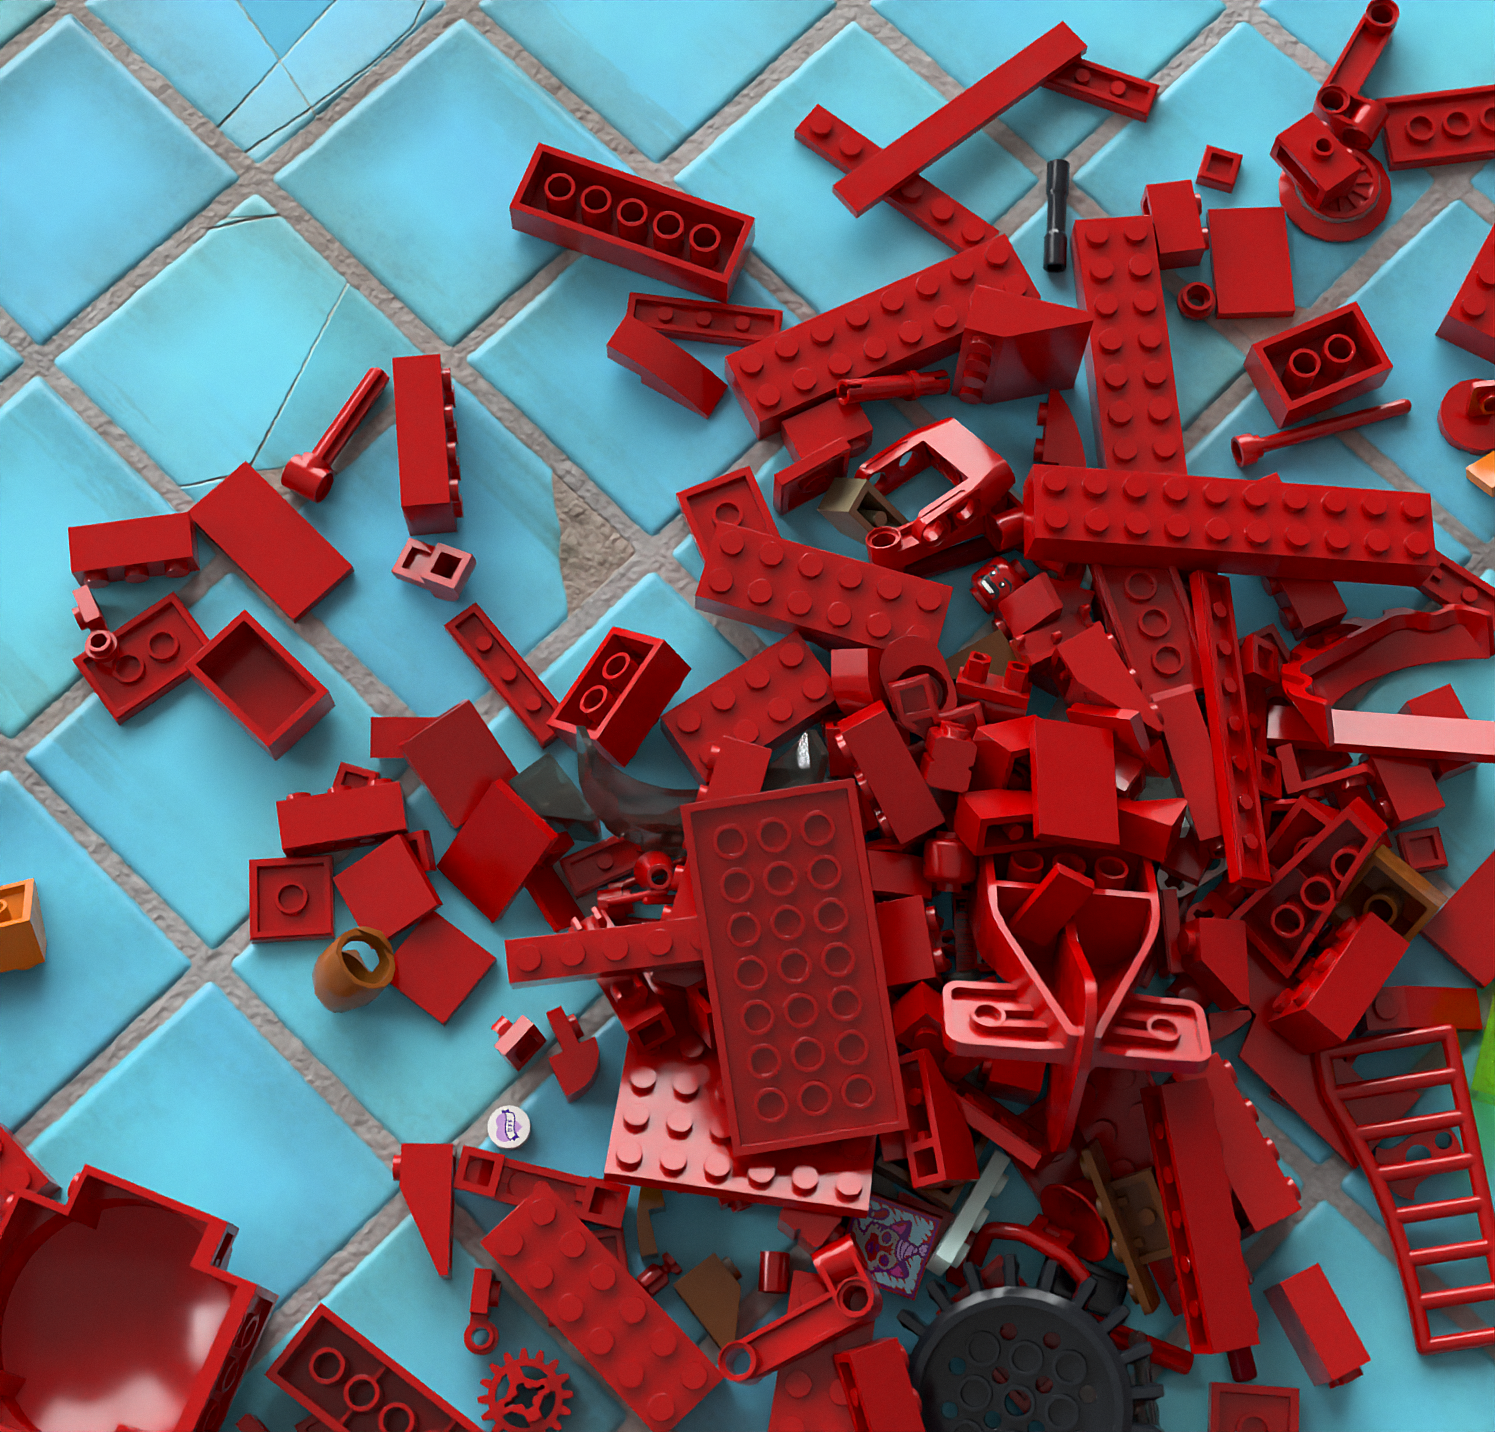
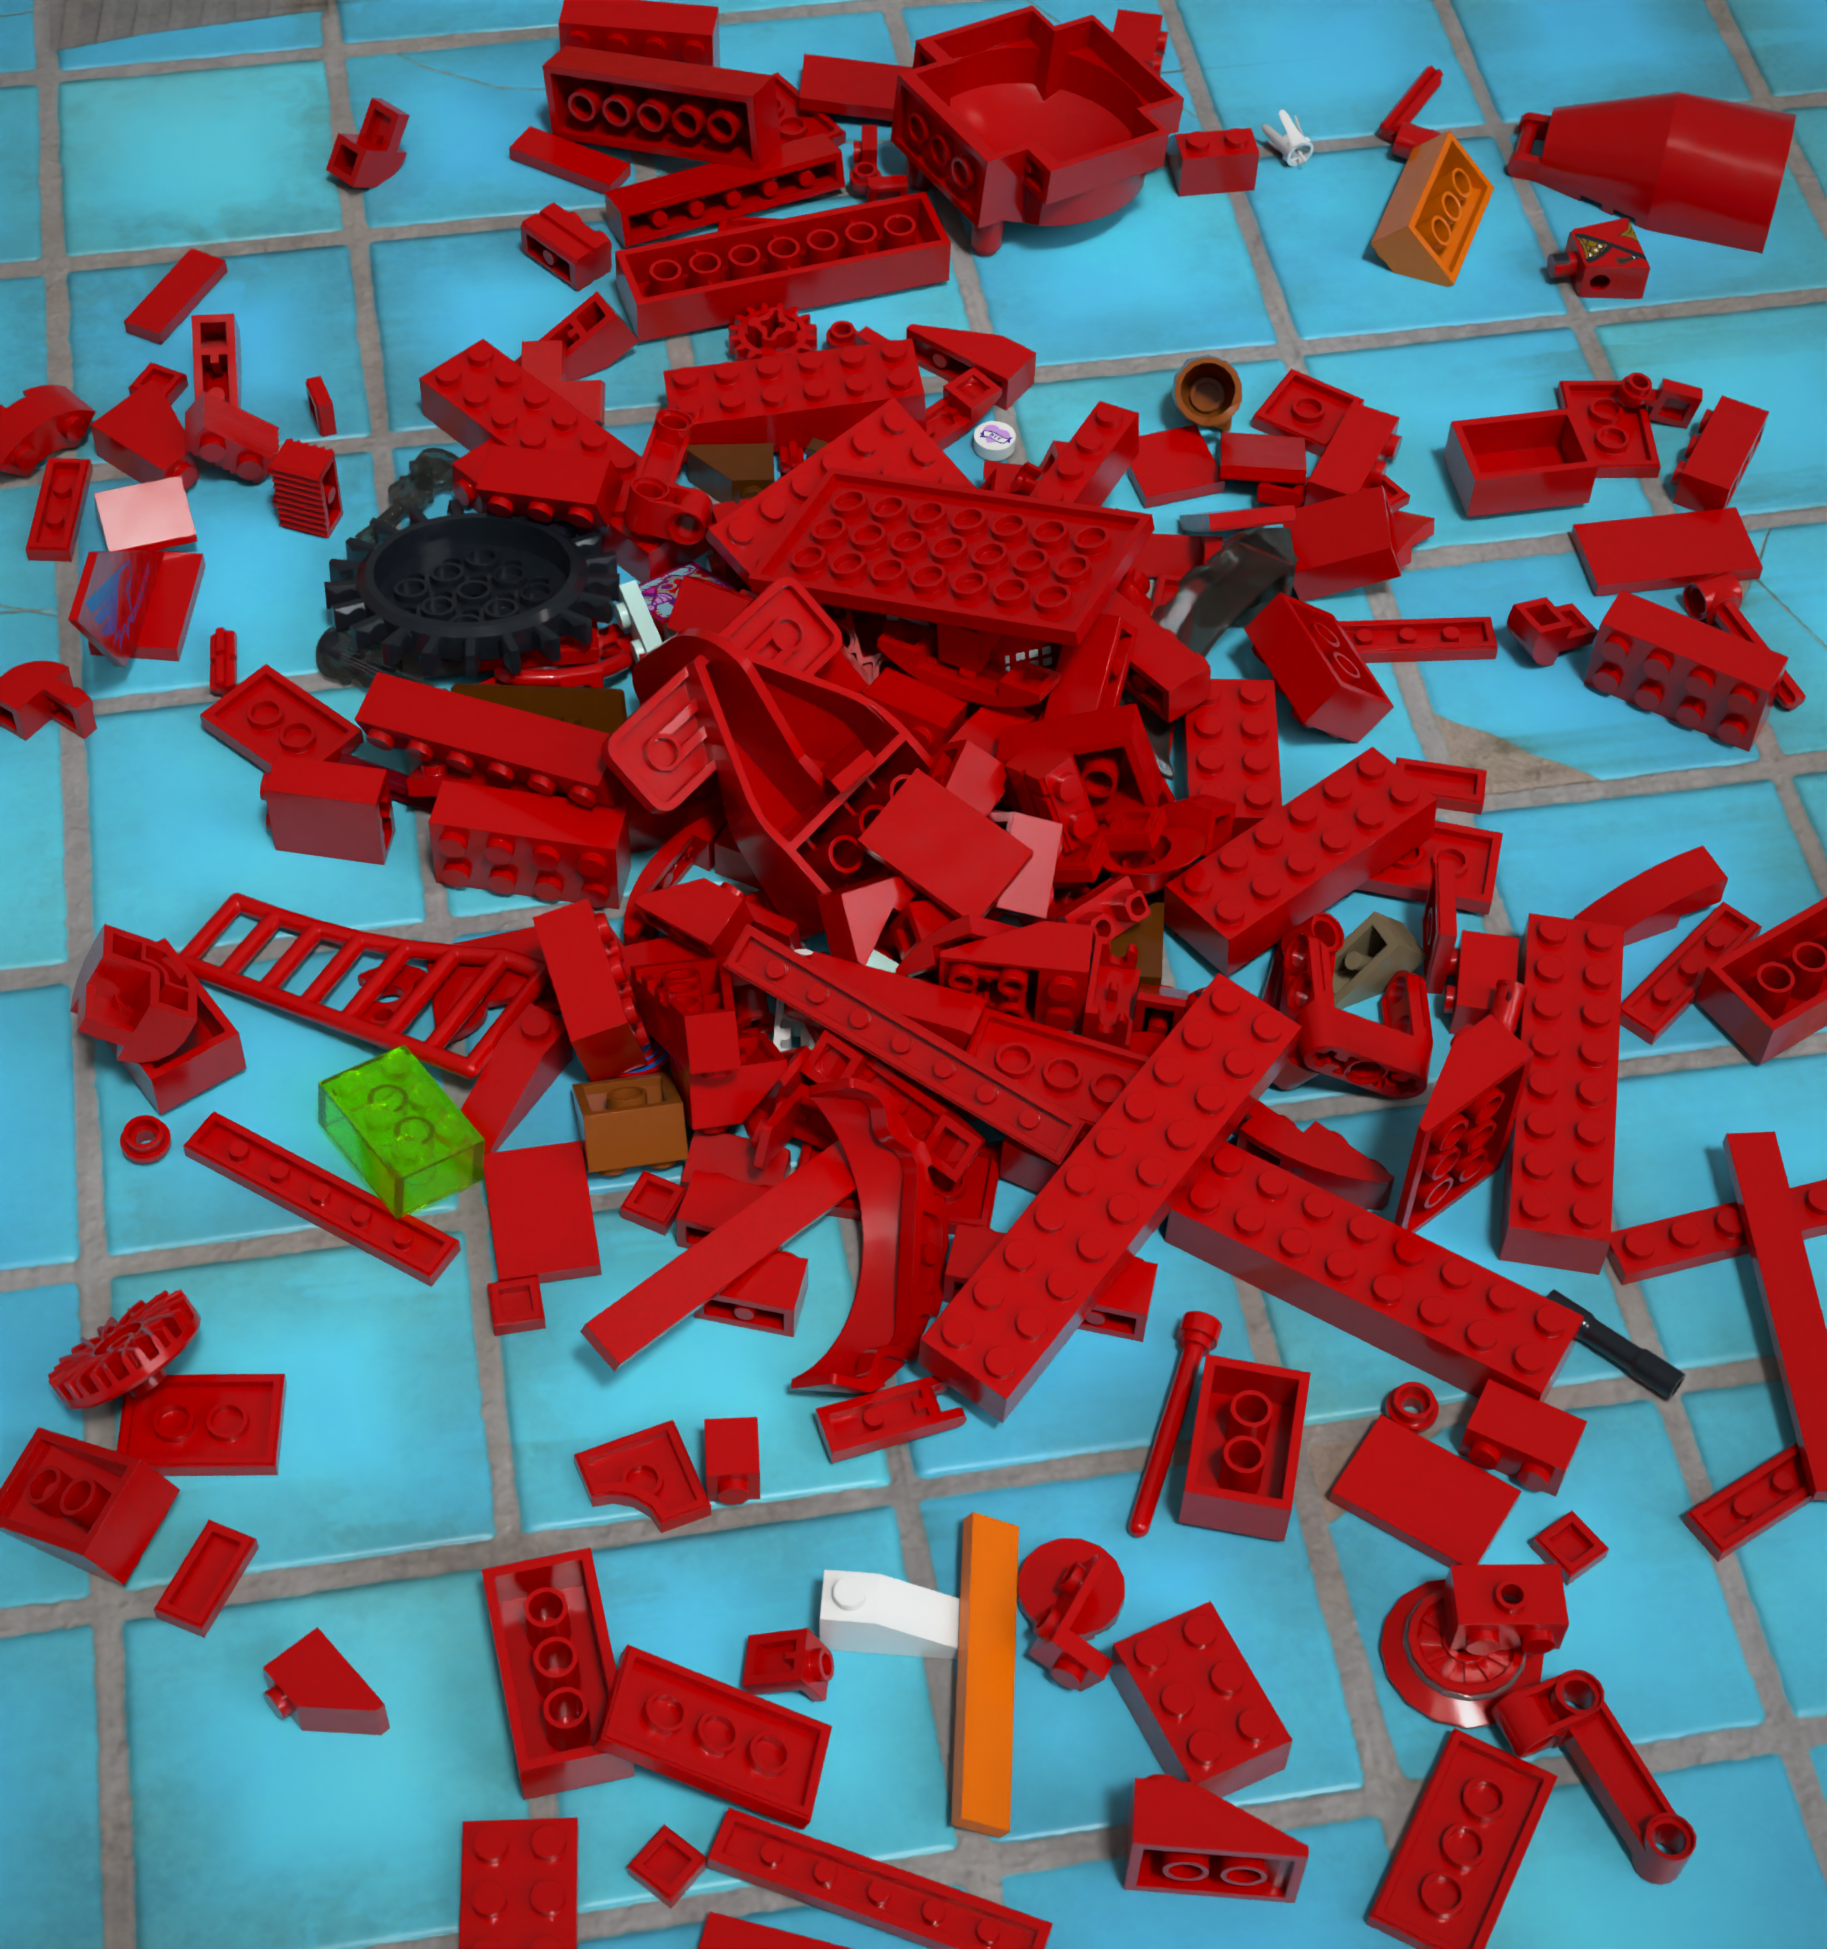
camera: 125 degrees right, 20 degrees down
(647, 570) = (1453, 786): none -> red tile

